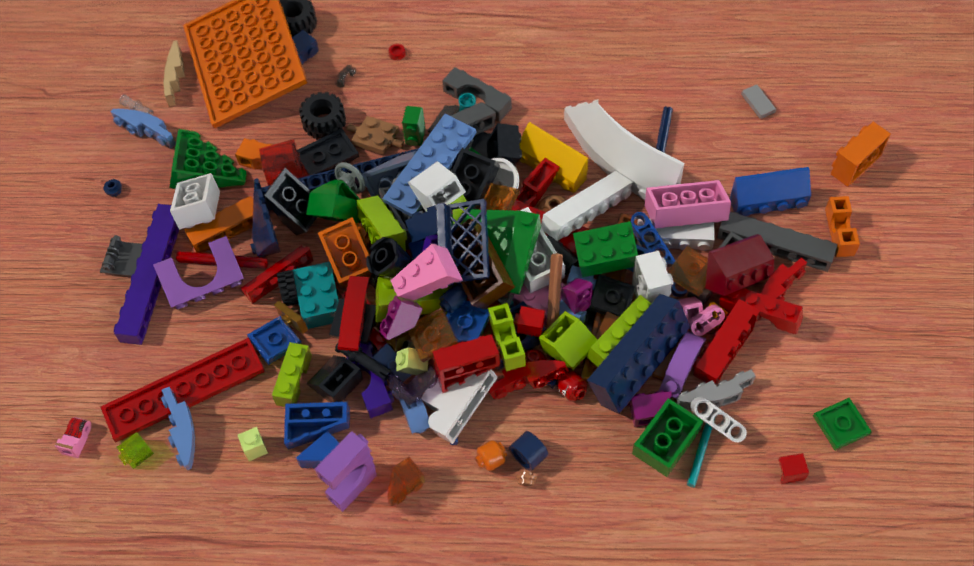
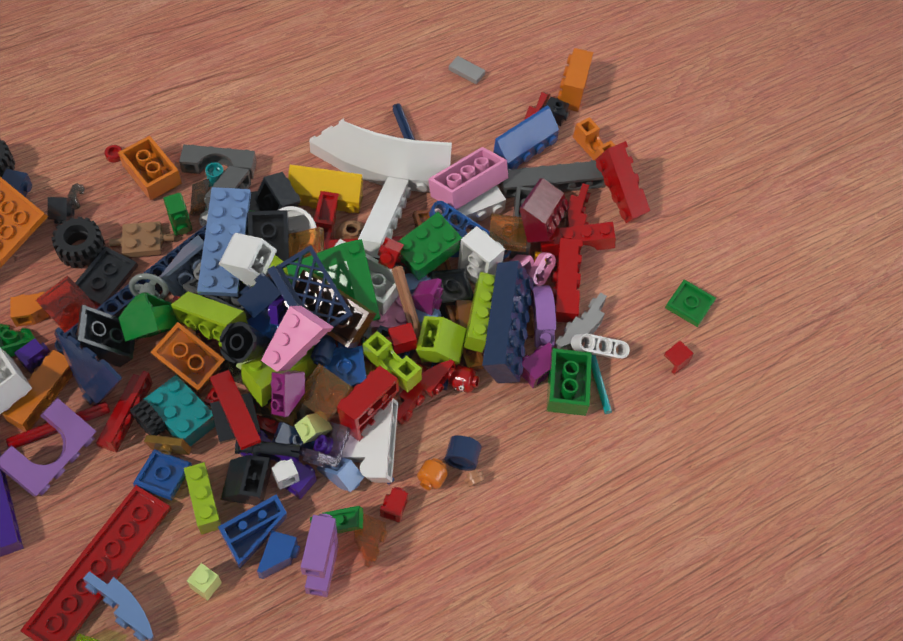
camera: 40 degrees left, 0 degrees up
(234, 192) = (32, 355): none -> dark purple brick
(324, 81) = (60, 209): none -> black brick
(364, 388) = (285, 473): none -> white plate
(387, 452) = (347, 518): none -> green hinge
(412, 380) = (323, 444): none -> dark purple bush
(416, 76) = (150, 167): none -> orange brick
(443, 464) = (394, 504): none -> red brick
(563, 239) = (389, 252): none -> red brick
(812, 162) = (543, 99): none -> red slope
(822, 177) = (559, 110): none -> black brick
(840, 274) = (623, 182): none -> red wedge

